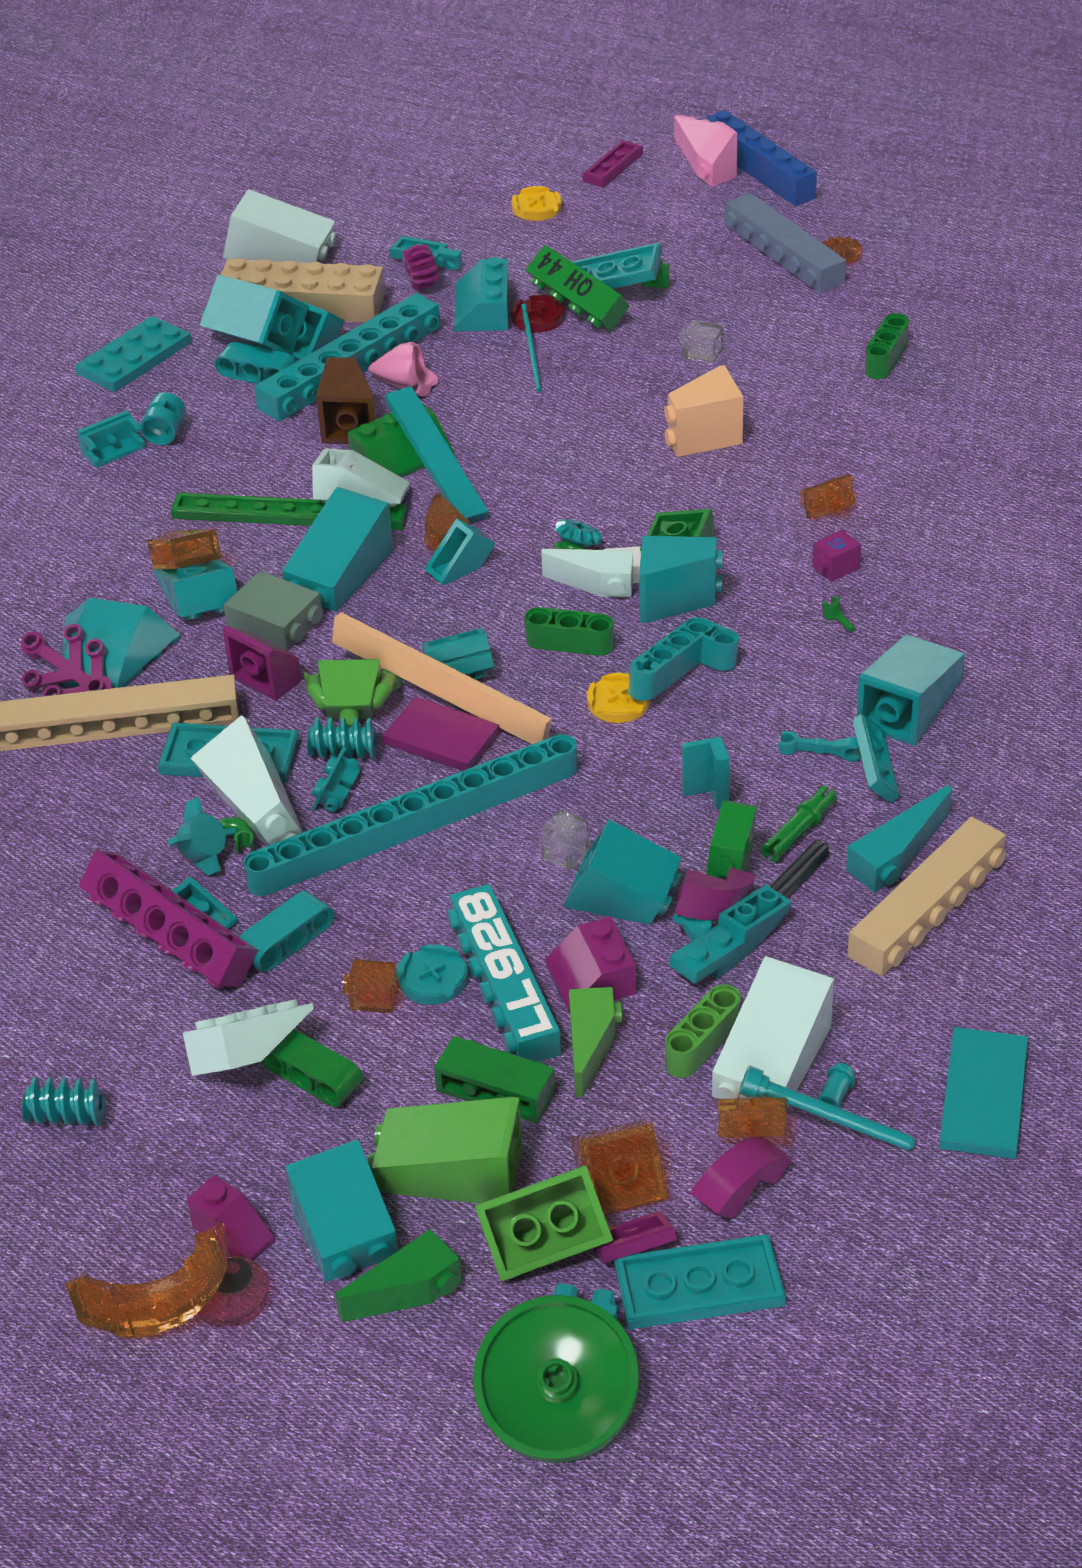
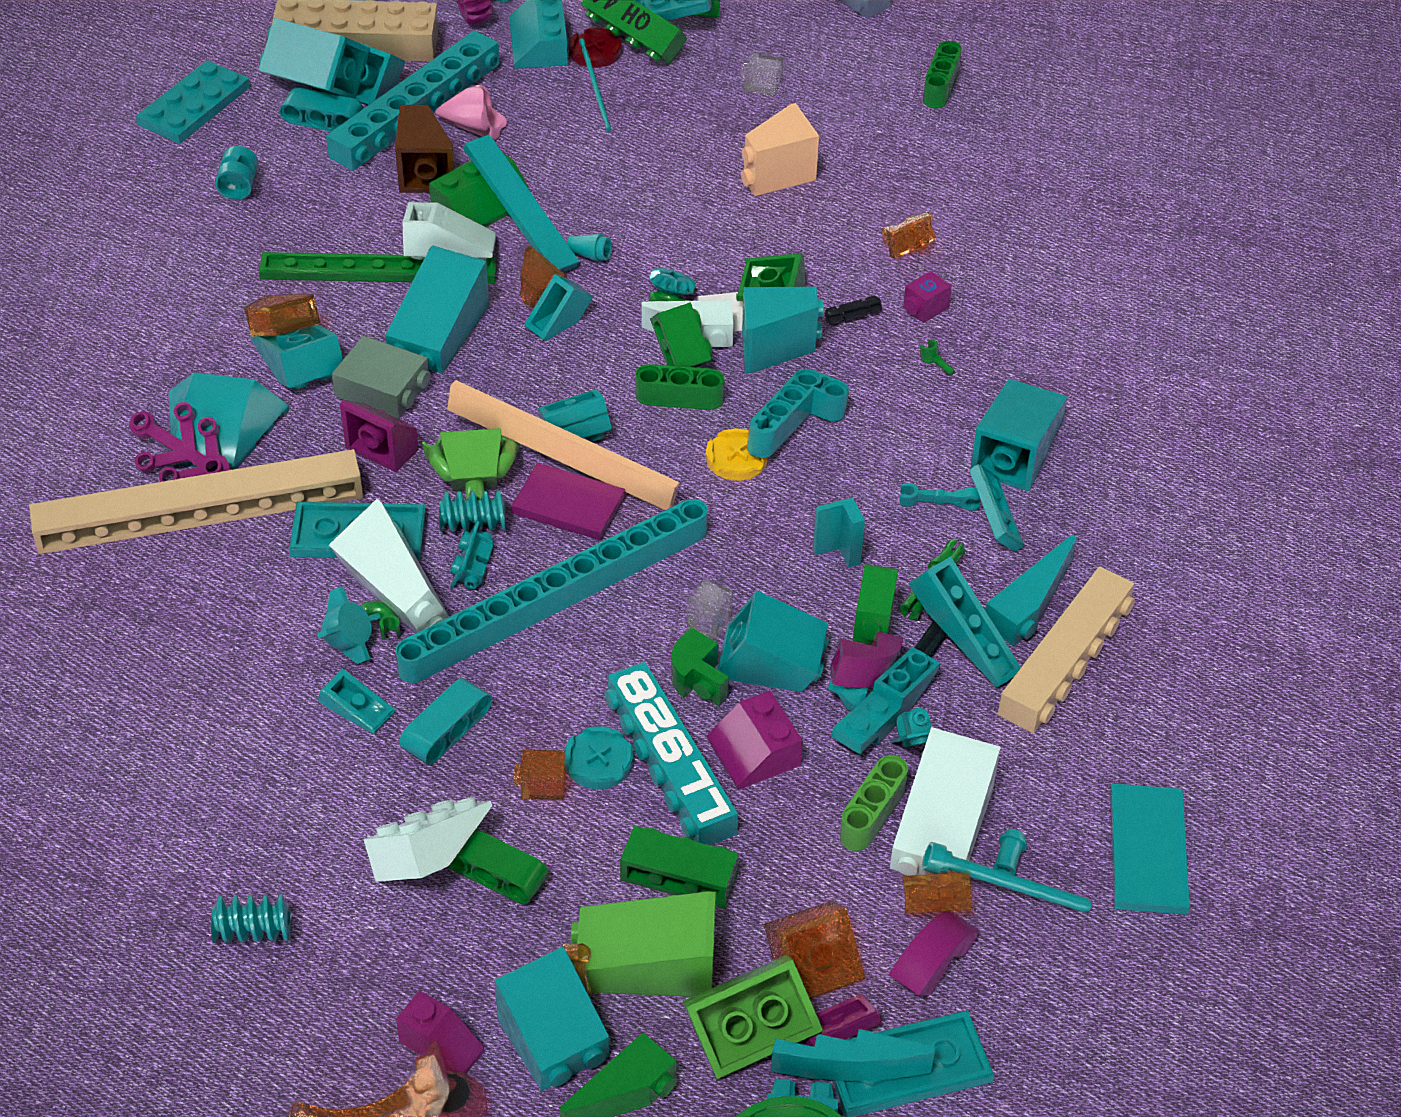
camera: 10 degrees left, 5 degrees up
(110, 439) = (185, 196): teal hinge -> none
(167, 919) = (397, 749): magenta brick -> none
(376, 1152) = (579, 955): none -> clear orange hand
(504, 498) = (592, 246): none -> teal cone
(543, 893) = (694, 668): none -> green brick
(576, 581) = (681, 337): none -> green brick
(592, 1031) = (765, 807): bright green slope -> none
(652, 1270) = (869, 1058): none -> teal slope
(750, 959) = (913, 727): none -> teal hinge
(759, 566) = (853, 310): none -> black axle
(822, 860) = (962, 617): none -> teal slope

